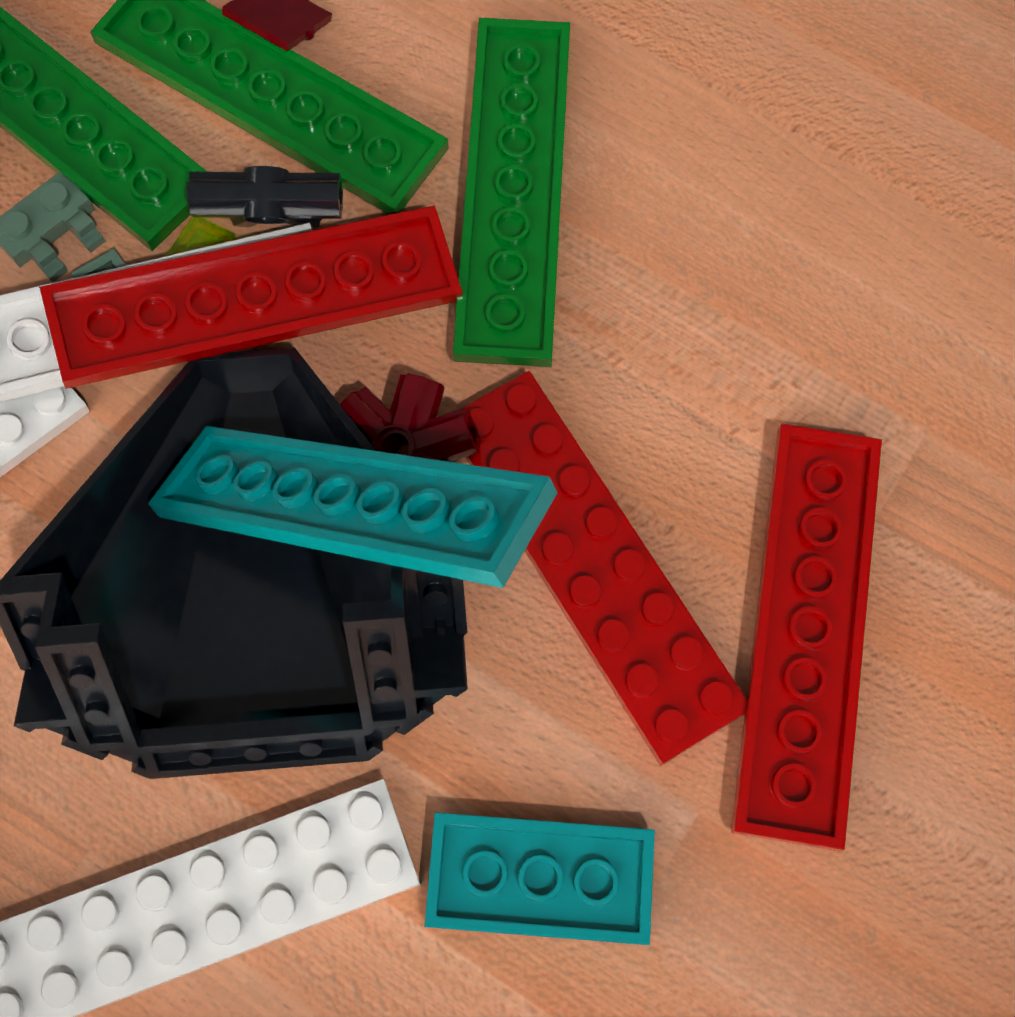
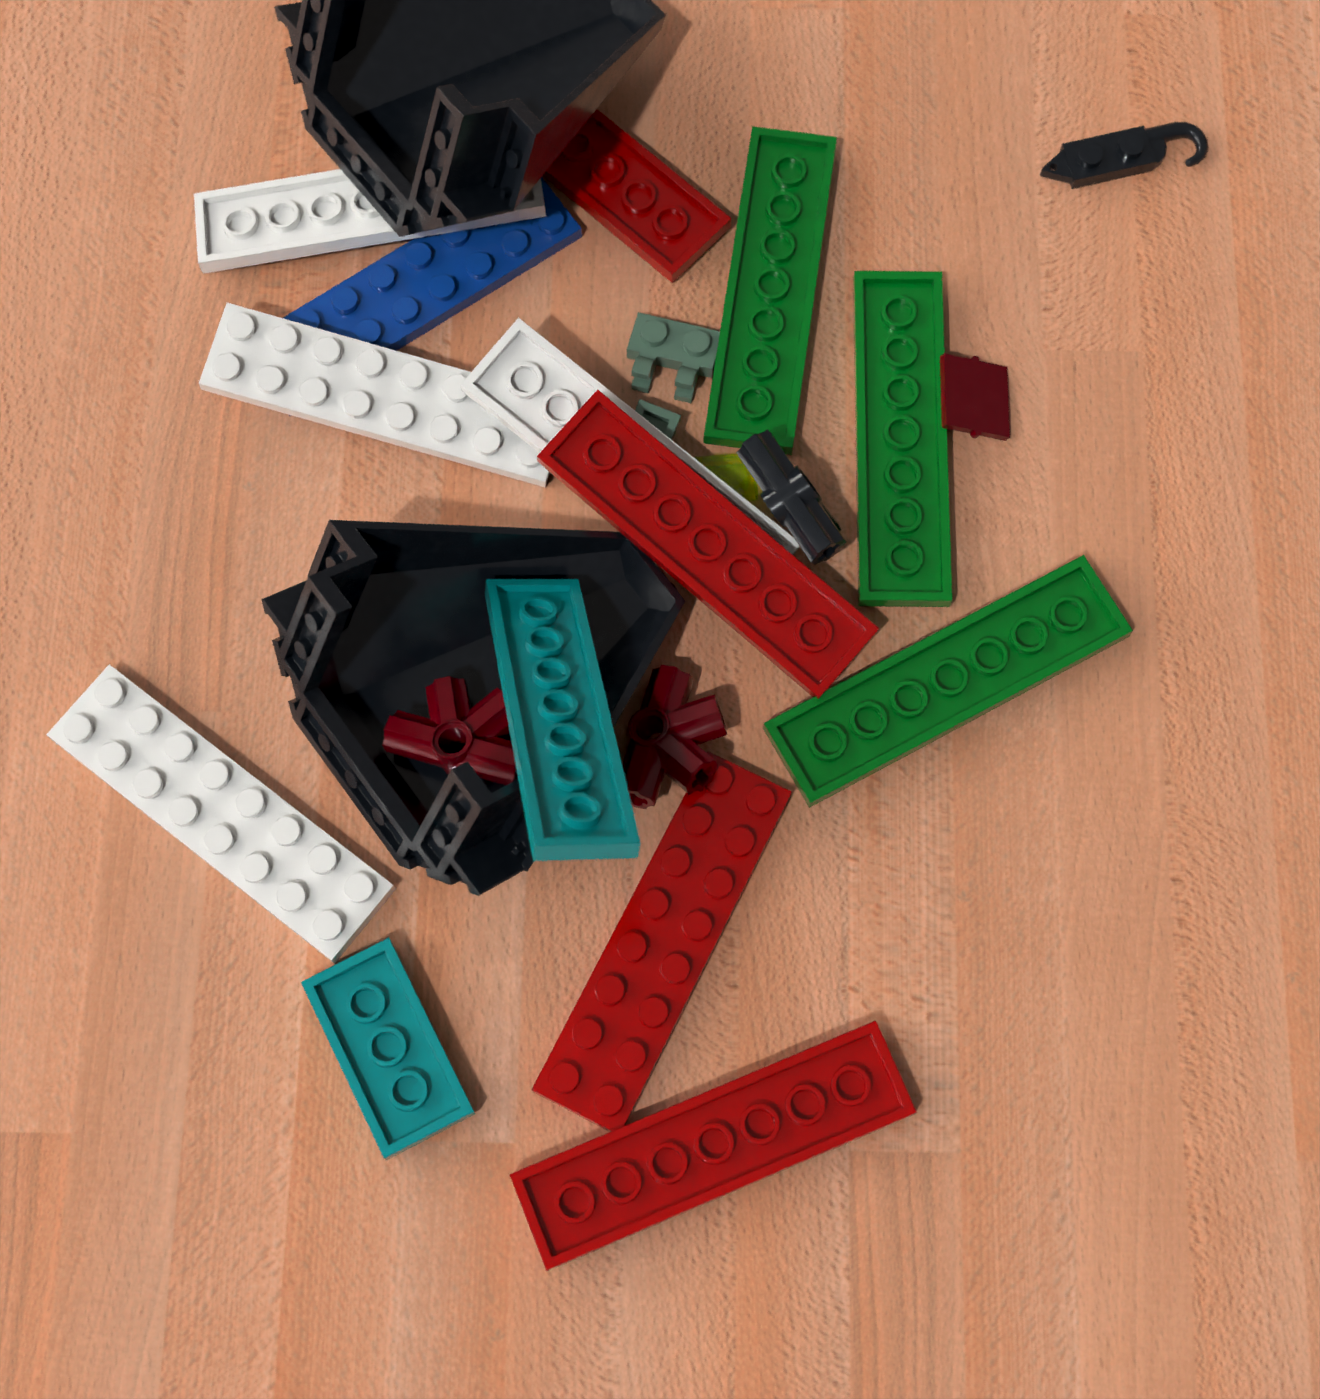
camera: 60 degrees right, 0 degrees up
(265, 622) = (455, 723): none -> dark red piece

